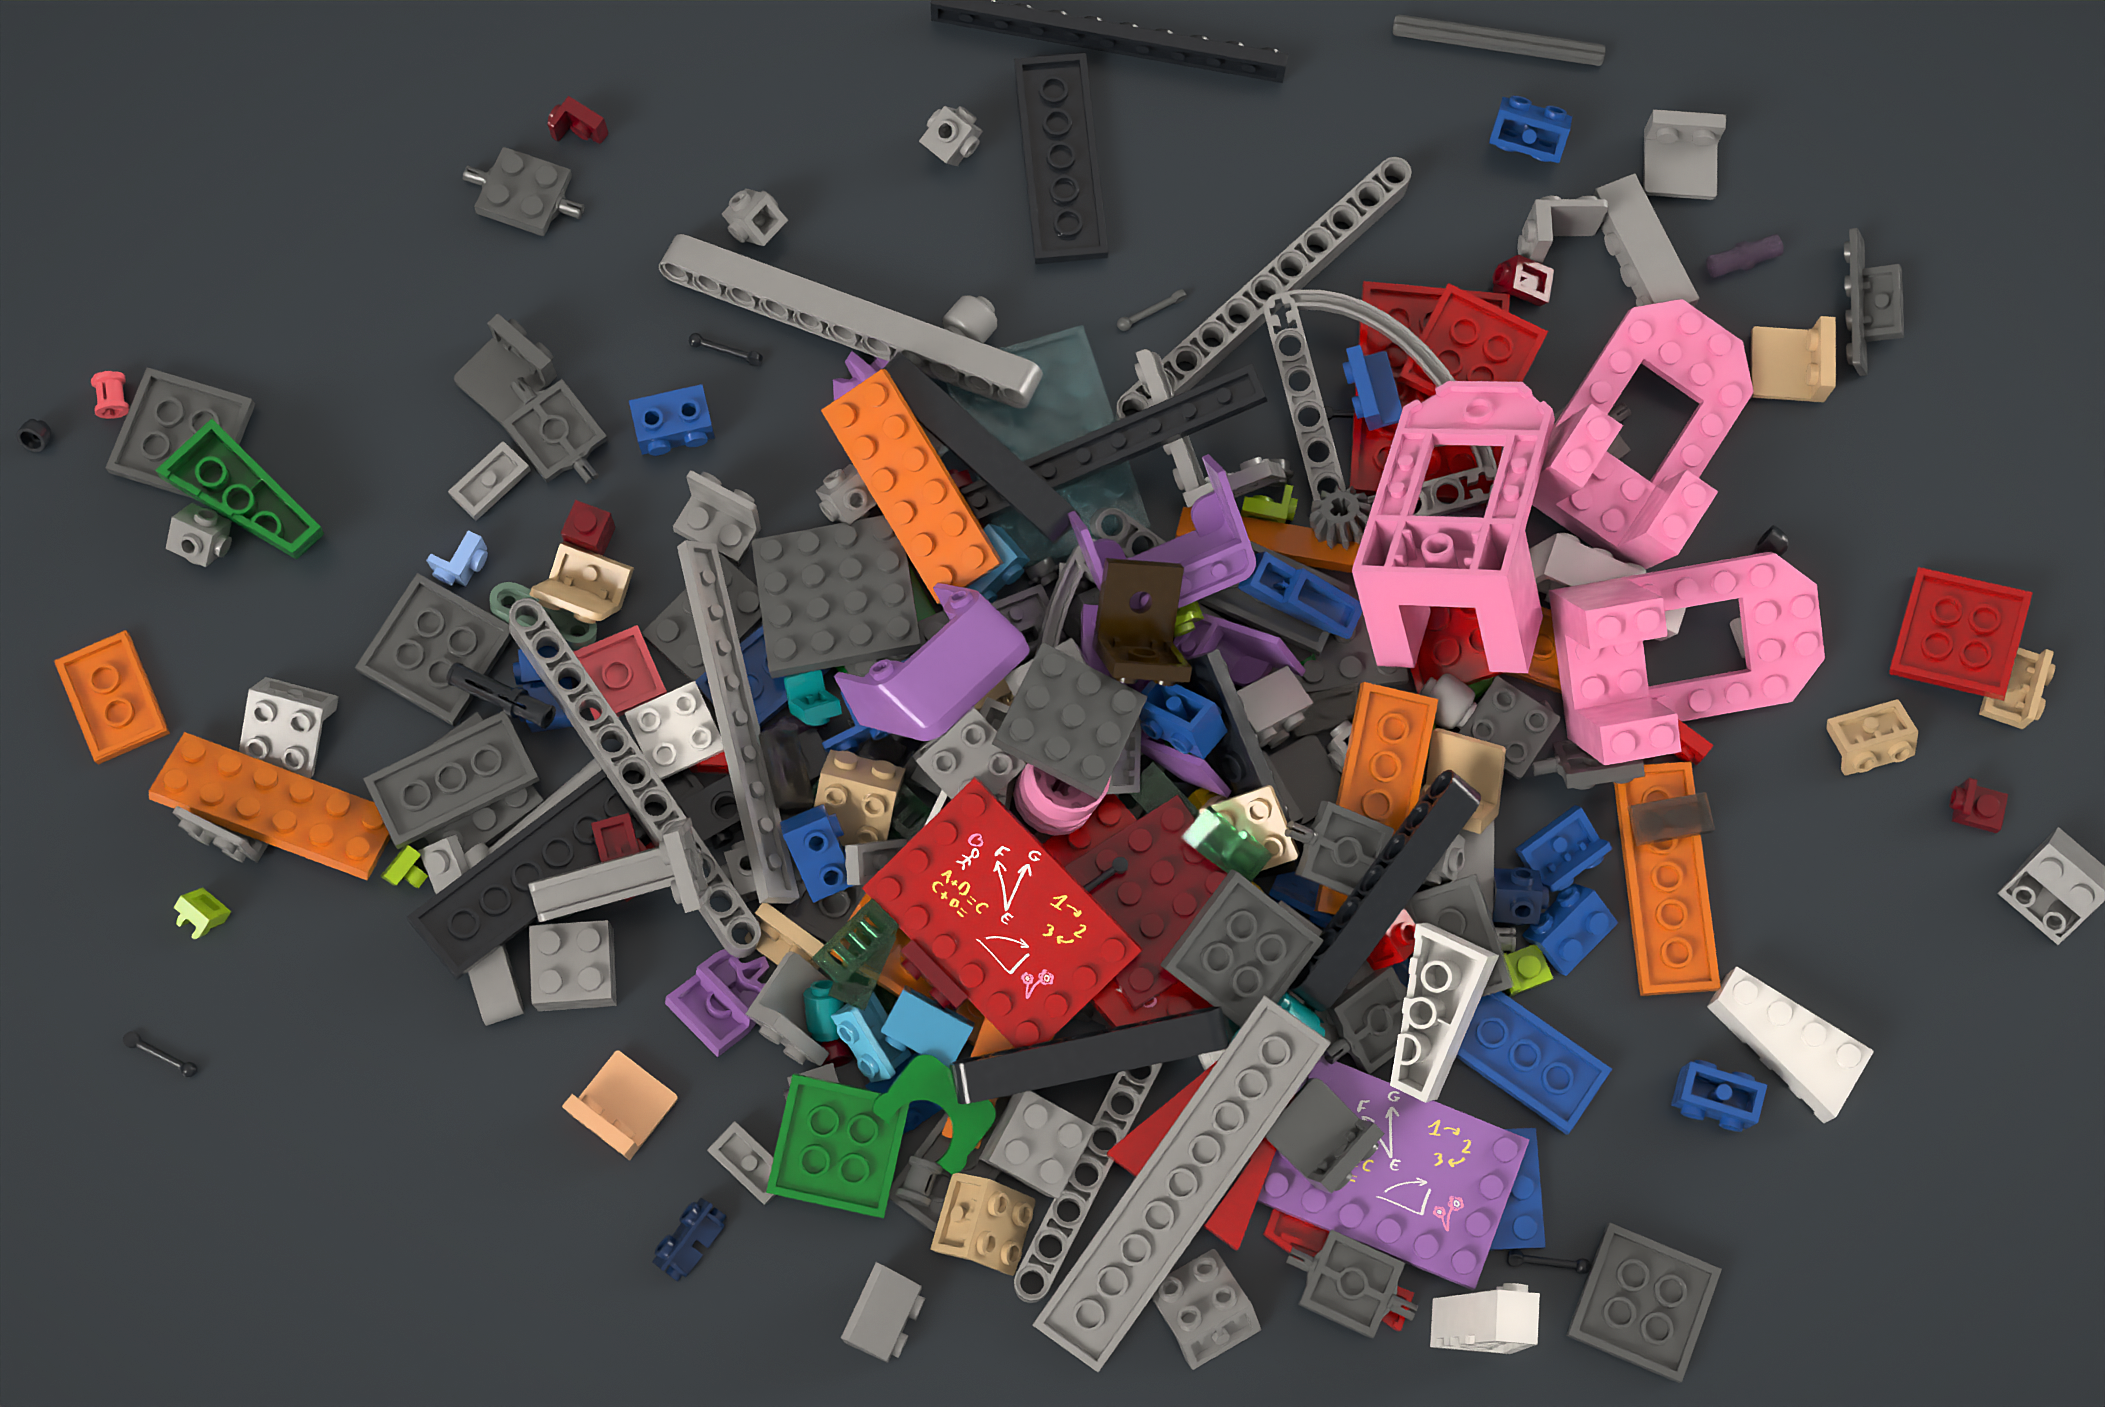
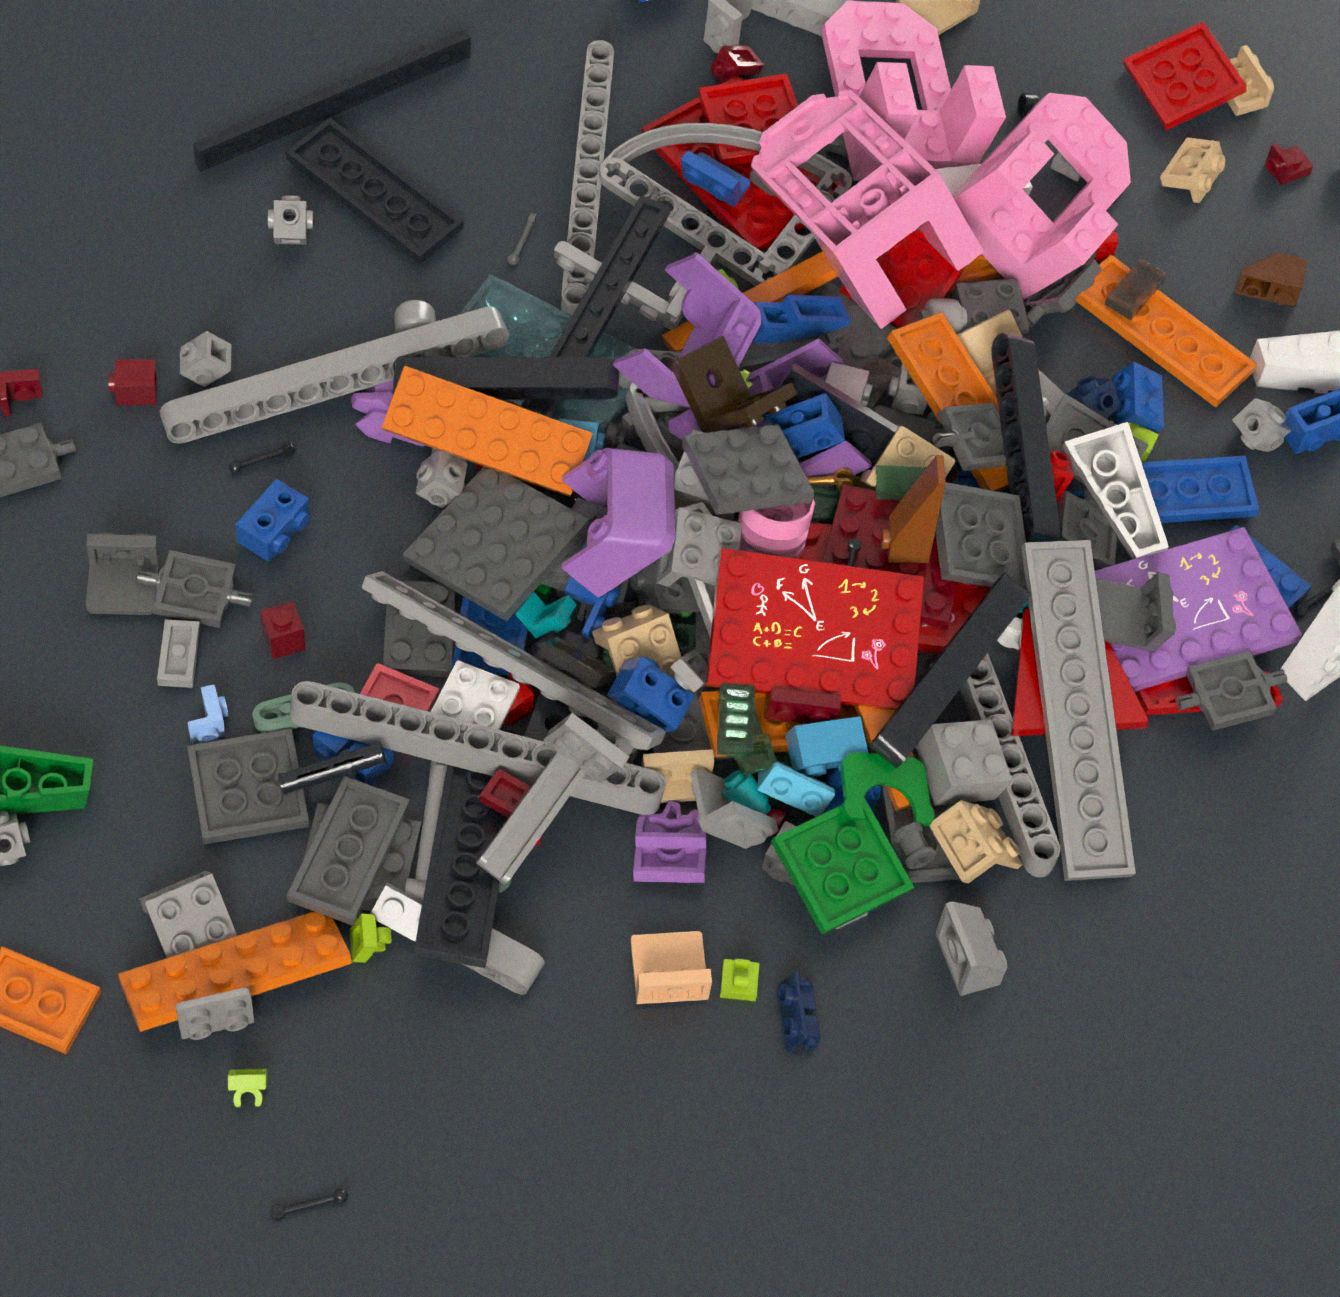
camera: 45 degrees left, 15 degrees down
(572, 965) = (549, 905): light grey brick -> none
(584, 584) = (314, 660): tan bracket -> none
(671, 1166) = (739, 979): none -> lime tile
(680, 191) = (134, 382): none -> dark red brick
(719, 517) = (362, 550): light grey bracket -> none
(744, 1160) = (788, 934): light grey plate -> none
(1177, 893) = (915, 518): none -> dark orange wedge
(1184, 784) = (840, 477): none -> pearl gold hand
(1205, 1308) = (1161, 780): light grey bracket -> none
(1340, 517) = (773, 259): dark grey gear -> none
(1563, 849) = (1090, 354): blue bracket -> none
(1657, 1053) = (1262, 425): none -> light grey brick
(1831, 914) = (1274, 279): none -> reddish brown slope

